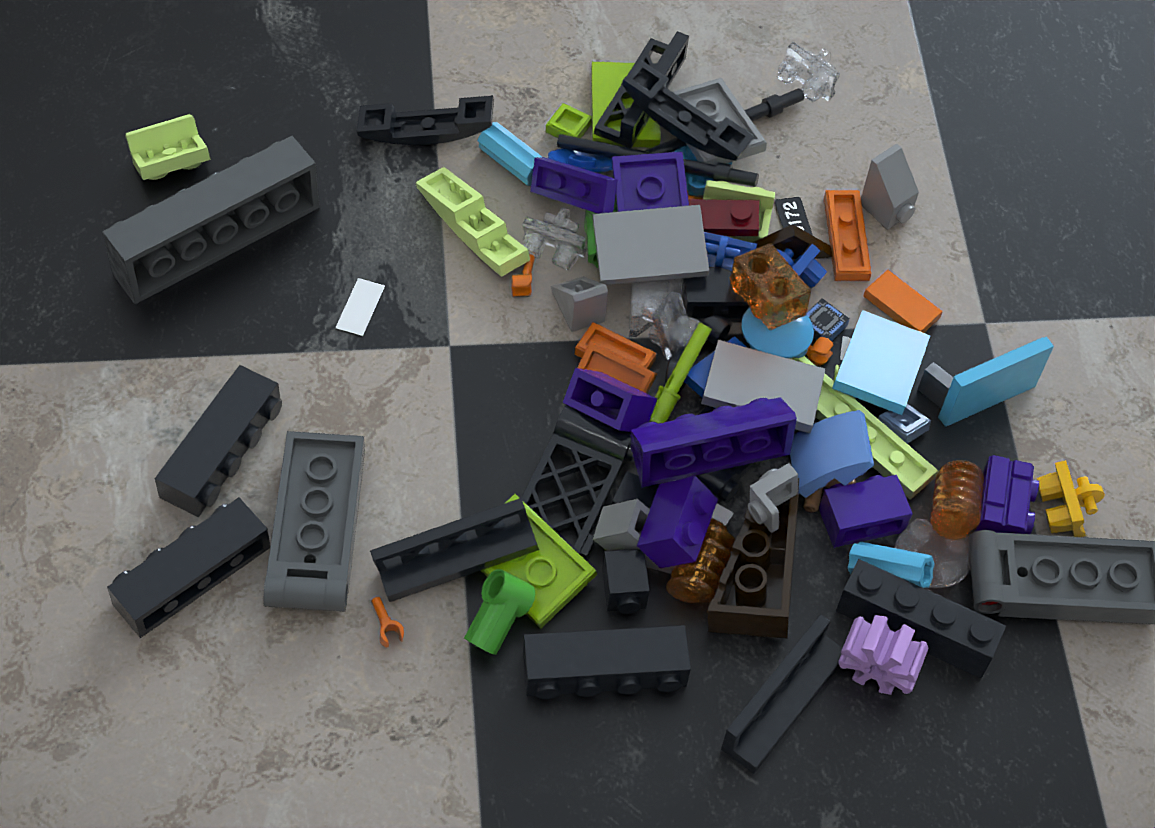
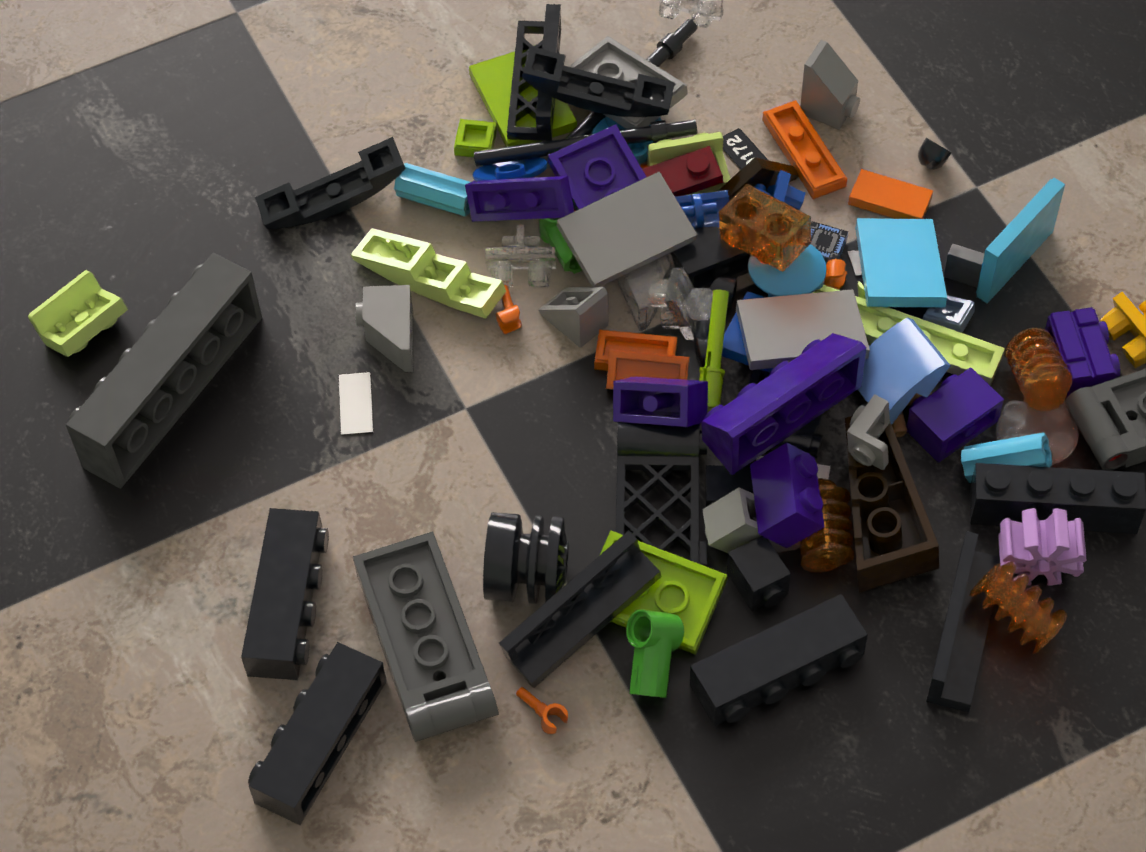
camera: 15 degrees left, 0 degrees up
(418, 249) = (388, 322): none -> light grey slope
(427, 487) = (523, 558): none -> black wheel
(839, 697) = (1020, 604): none -> clear orange piece
(957, 280) = (932, 155): none -> black hinge

